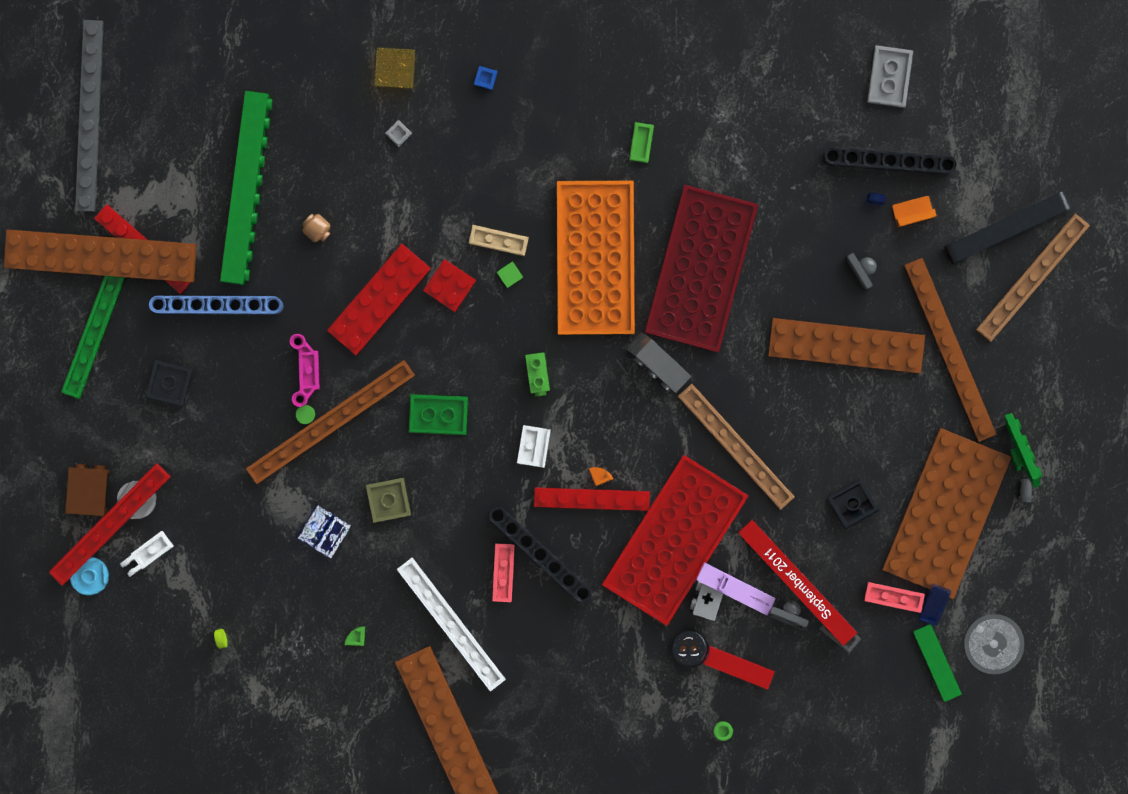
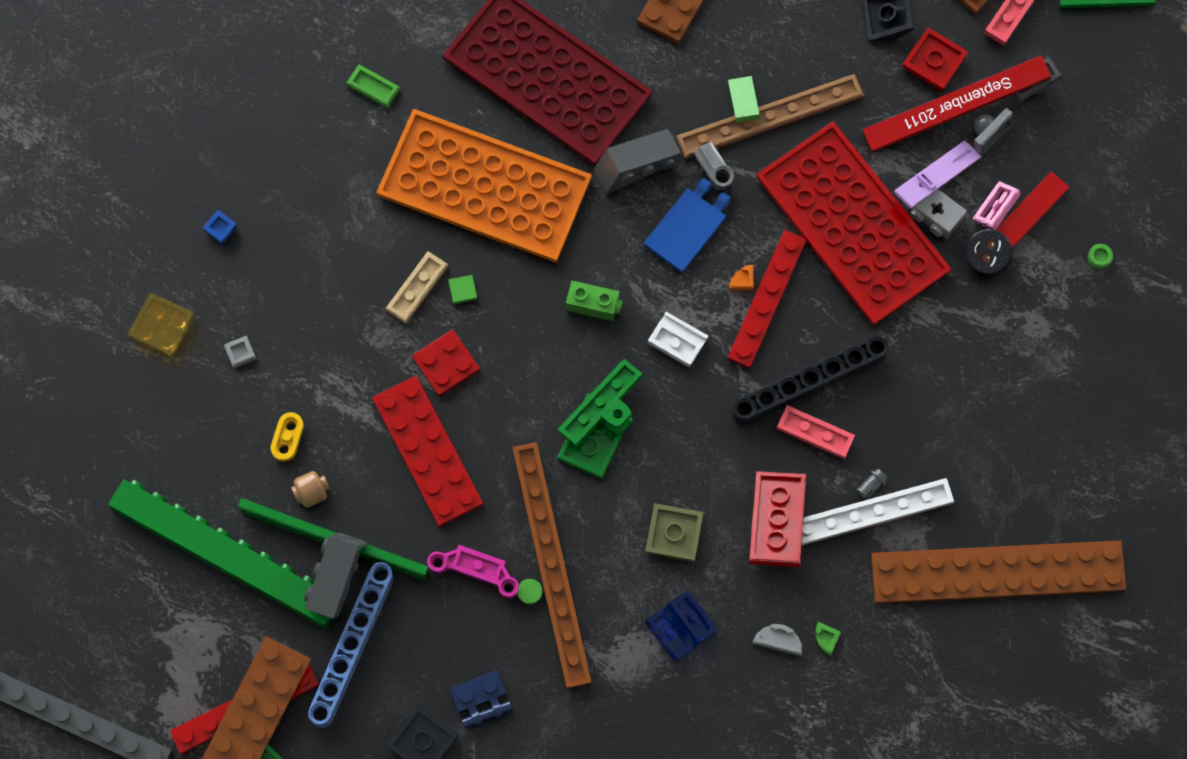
camera: 70 degrees left, 15 degrees down
(219, 407) = (478, 692): none -> dark blue plate
(256, 274) = (334, 574): none -> dark grey wedge
(286, 260) = (320, 534): none -> green tile
(342, 603) = (779, 638): none -> light grey tile
(348, 194) = (287, 438): none -> yellow plate
(426, 570) = (778, 519): none -> tile
(459, 412) = (603, 406): none -> green plate
(481, 627) = (871, 484): none -> dark grey pin
(623, 419) = (687, 227): none -> blue tile
(678, 420) = (712, 164): none -> light grey piece
(736, 649) = (1000, 207): none -> bright pink tile
(740, 422) = (743, 99): none -> tile
(830, 553) = (935, 59): none -> red plate

